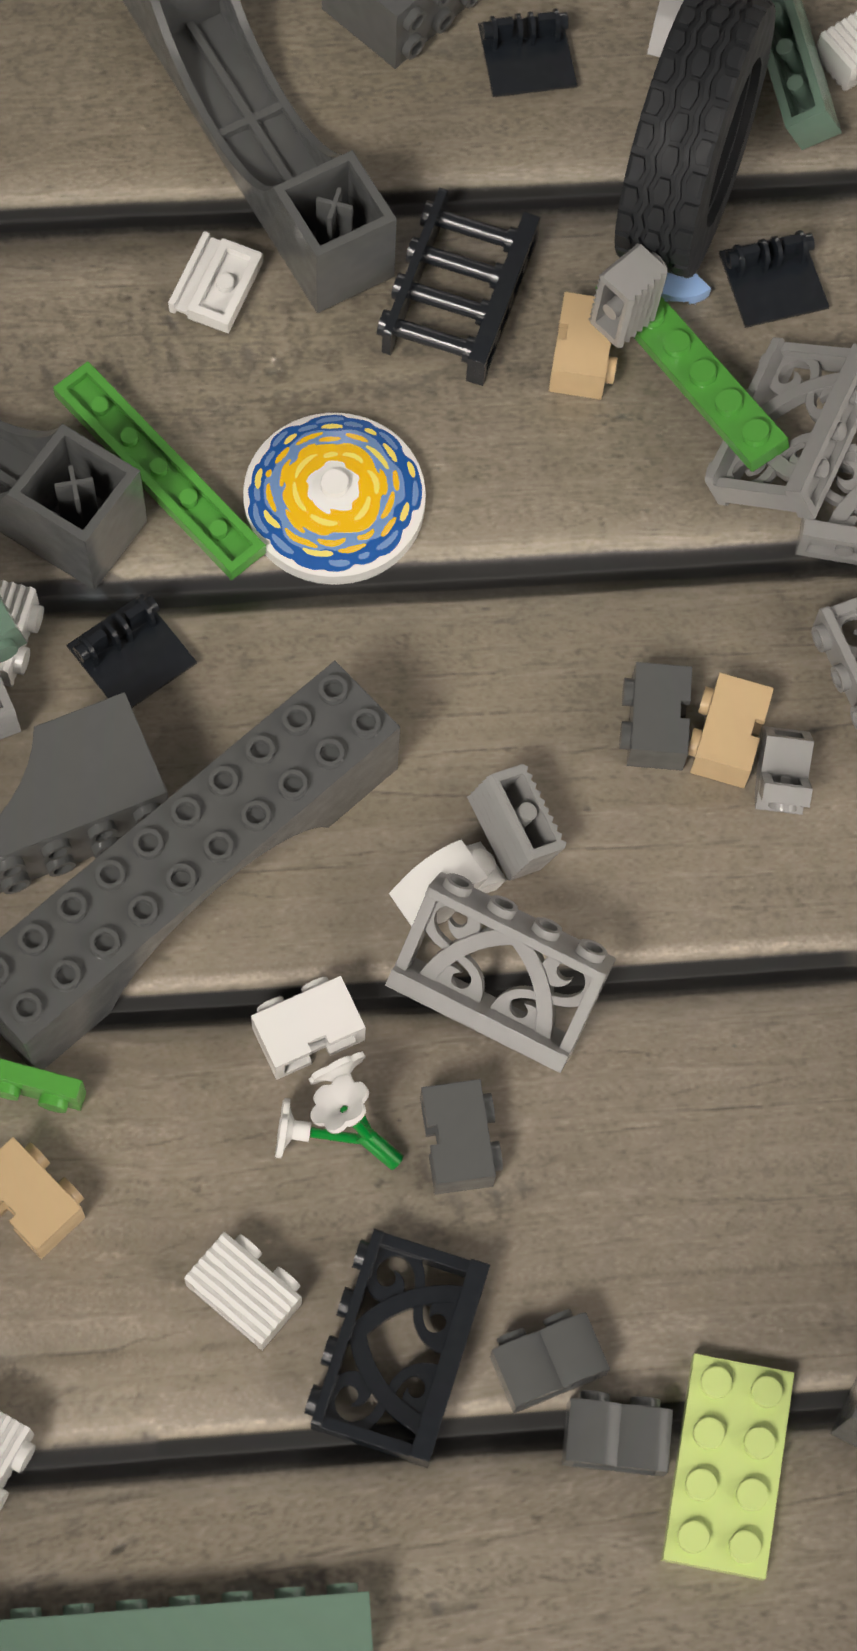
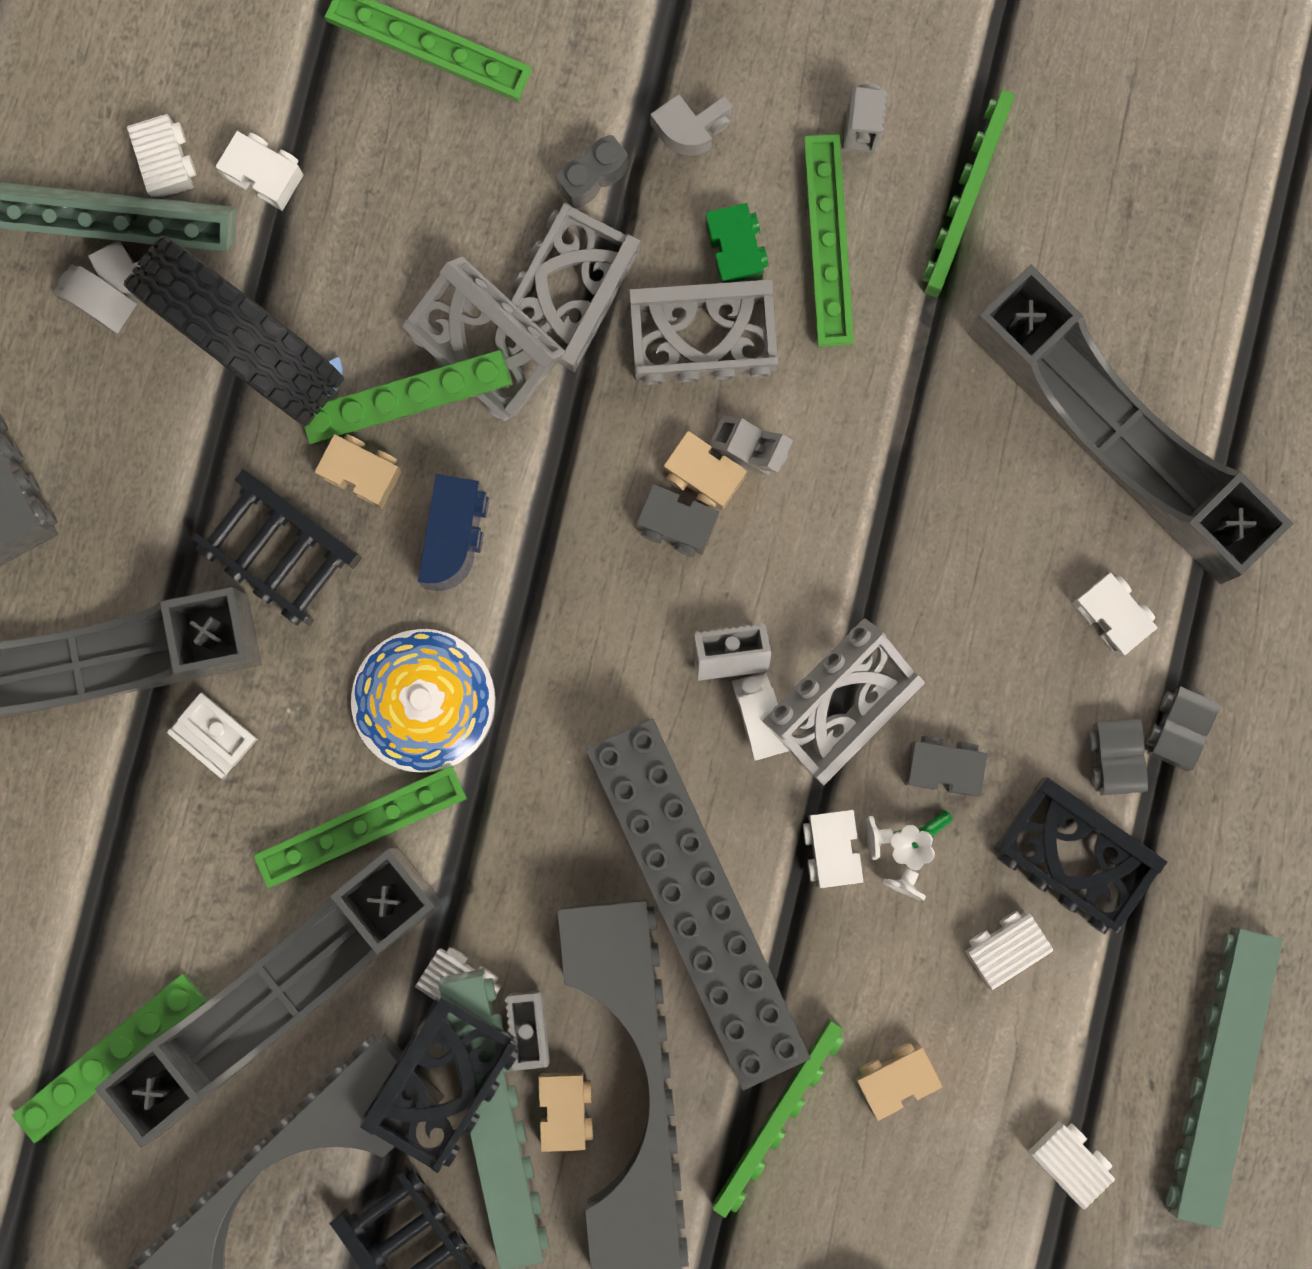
camera: 65 degrees left, 15 degrees up
(132, 652) = (504, 891): black hinge -> none
(527, 53) = (82, 426): black hinge -> none
(546, 458) = (452, 532): none -> dark blue brick
(628, 295) = (346, 427): light grey brick -> none
(728, 1467) = (1221, 660): yellowish green plate -> none
(748, 1285) = (1116, 613): none -> white brick
(774, 278) = (344, 305): black hinge -> none

